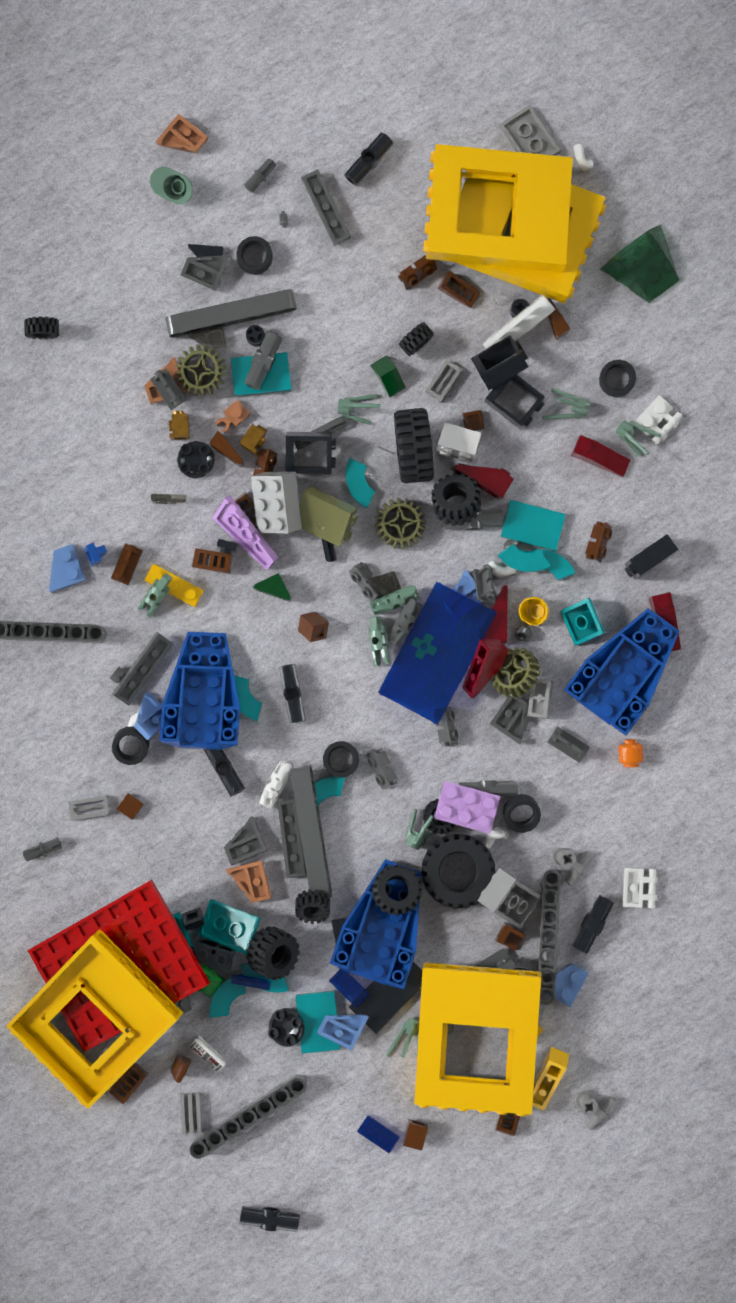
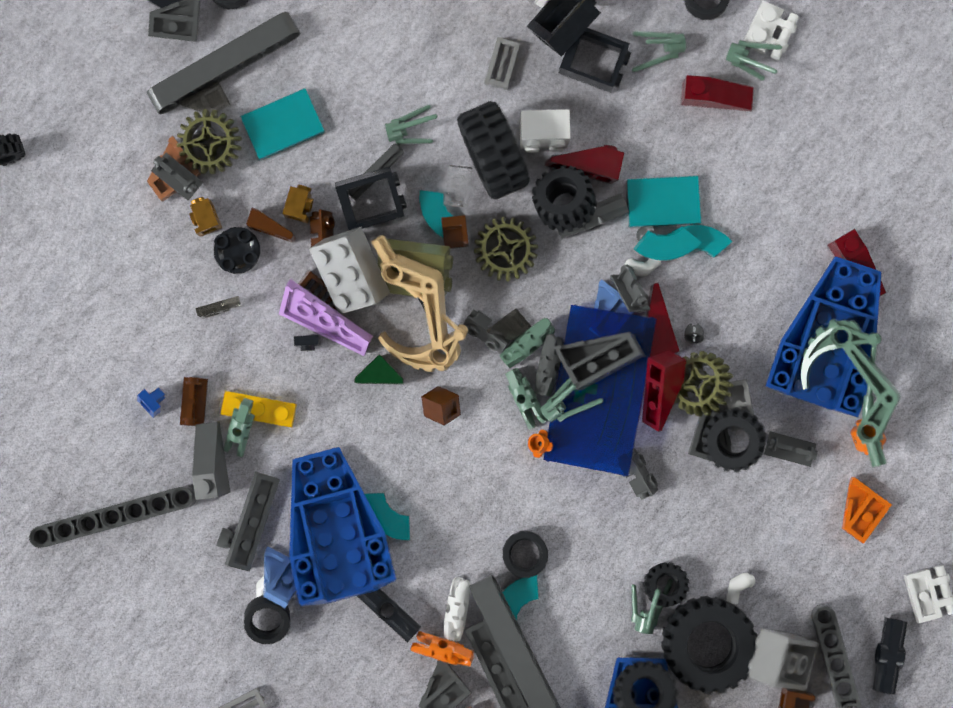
camera: 20 degrees left, 0 degrees up
(65, 569) = (122, 431): medium blue wing -> none
(124, 613) = (209, 462): none -> dark grey slope
(130, 806) = (290, 692): reddish brown tile -> none
(227, 565) = (314, 360): reddish brown slope -> none
(234, 414) = (267, 182): nougat plate -> none
(254, 331) = (258, 75): black wheel -> none
(255, 810) = (442, 649): none -> orange hinge
(263, 360) = (279, 106): dark grey piece -> none
(294, 706) = (449, 508): black piece -> none
(332, 532) = (422, 279): none -> tan piece
(366, 498) = (455, 231): none -> reddish brown panel
(374, 679) = (534, 443): none -> orange plate
(384, 777) = (583, 558): dark grey hinge -> none
(388, 376) = (435, 78): dark green slope -> none
(399, 655) = (555, 407): none -> sand green plant
(416, 339) = (454, 23): black tyre -> none
(443, 628) = (598, 358): none -> dark grey wedge
(467, 807) = (696, 564): lavender plate -> none
(473, 420) = (552, 99): reddish brown tile -> none
(503, 789) = (713, 534): dark grey piece -> none
(510, 727) = (727, 459): none -> black tyre
(518, 800) = (773, 561): black tyre -> none
(533, 611) = (698, 303): yellow hair -> none
(570, 862) = (836, 588): light grey piece -> none
(582, 621) = (760, 297): teal slope -> none
(598, 549) = (749, 186): reddish brown hinge -> none
(608, 808) = (863, 510): none -> orange wing
(650, 557) = (817, 194): black window -> none
(651, 726) = (886, 393): none -> sand green piece

